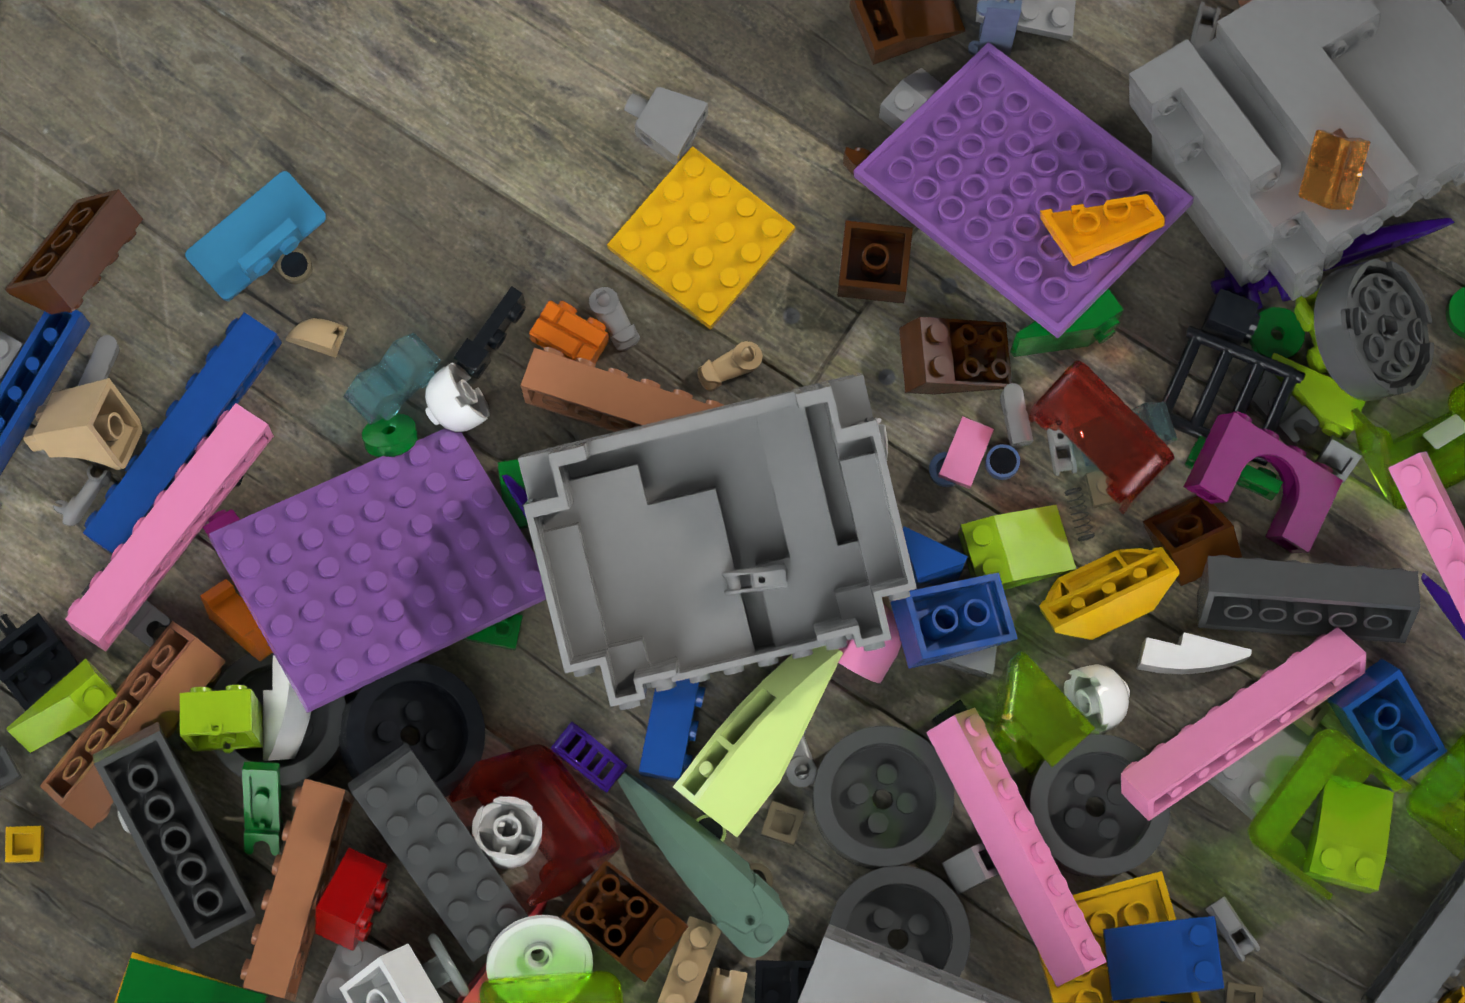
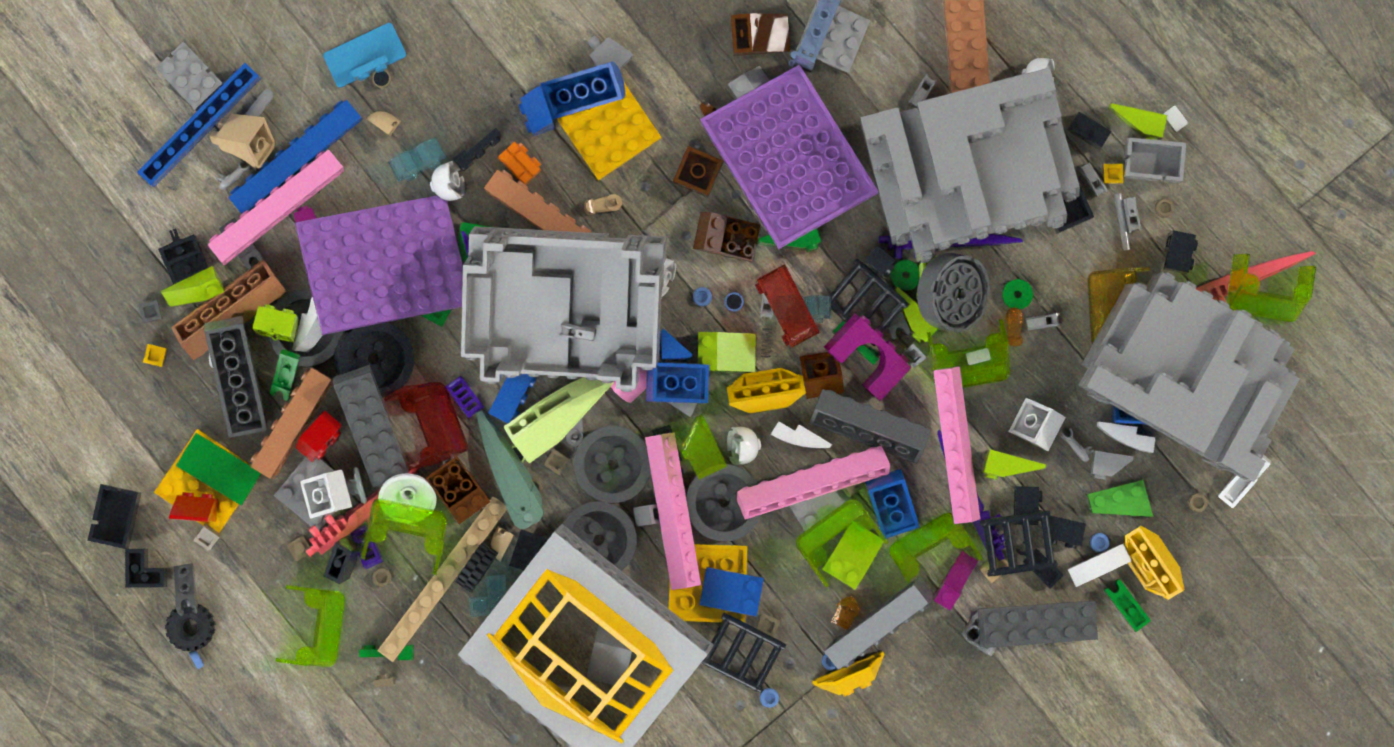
camera: 10 degrees right, 10 degrees up
(76, 253) = (264, 39): reddish brown slope -> none
(234, 618) = (295, 264): orange leg -> none
(391, 436) = (407, 192): green piece -> none
(507, 832) = (410, 425): white cylinder -> none
(574, 239) = (537, 112): none -> blue slope
(610, 312) = (546, 156): light grey piece -> none
(641, 179) = (583, 90): none -> blue brick
(966, 452) = (715, 291): bright pink slope -> none
(1016, 416) = (748, 280): light grey bar -> none
(1097, 229) = (820, 195): light orange wing -> none
(1229, 923) = (774, 582): light grey bar -> none
(1334, 170) = (948, 208): clear orange panel -> none
(1372, 938) = (846, 612): none -> clear orange tile

